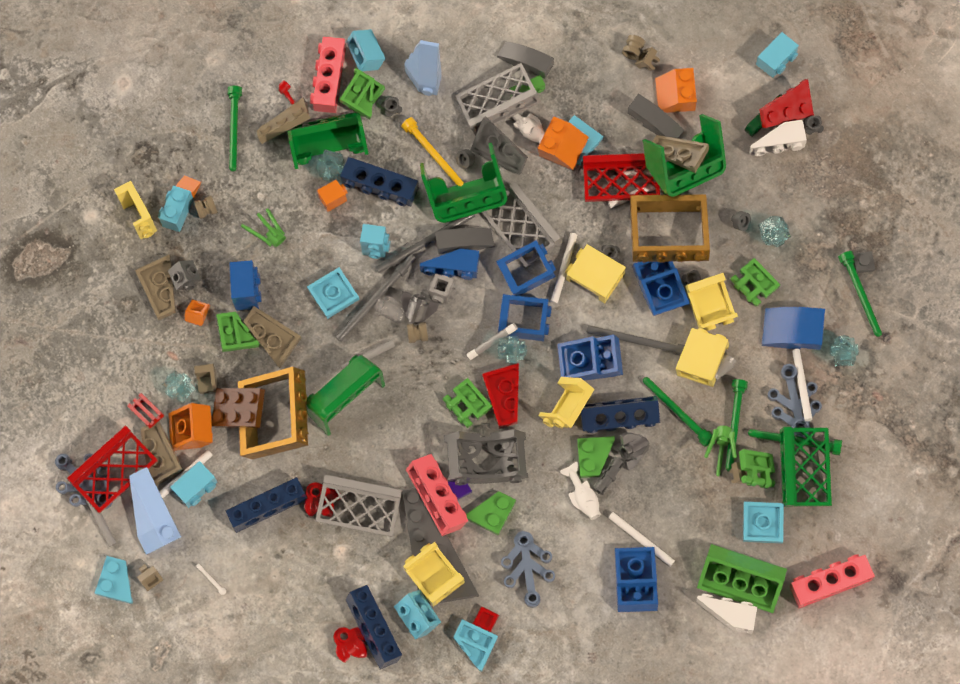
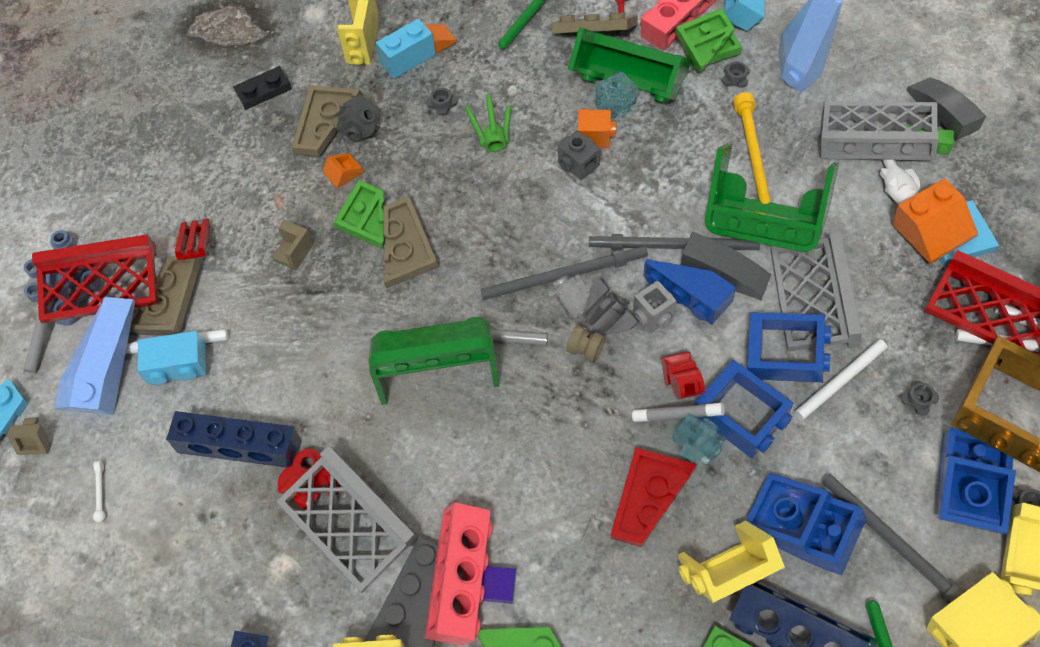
camera: 35 degrees right, 10 degrees down
(101, 288) = (262, 87): none -> black plate
(178, 386) = (247, 242): clear light blue brick -> none
(190, 427) = (228, 289): orange slope -> none
(209, 204) = (439, 64): dark tan wheel -> none
(220, 226) = (441, 100): none -> dark grey plate
(238, 407) = (293, 297): reddish brown plate -> none
(245, 285) = (413, 163): blue brick -> none
(298, 409) = (349, 342): pearl gold window -> none
(333, 293) = (515, 236): medium azure plate -> none
(335, 219) = (578, 154): none -> dark grey brick
(356, 168) = (663, 144): dark blue brick -> none
(374, 241) = (607, 201): medium azure brick -> none
(465, 158) = (791, 174): dark grey tile -> none
(472, 398) = (599, 471): bright green plate -> none
(482, 318) = (683, 375): none -> red leg
(506, 151) = (851, 193): dark grey wing -> none
(506, 439) = (606, 555): dark grey fence -> none
(596, 272) = (886, 409): light yellow panel -> none

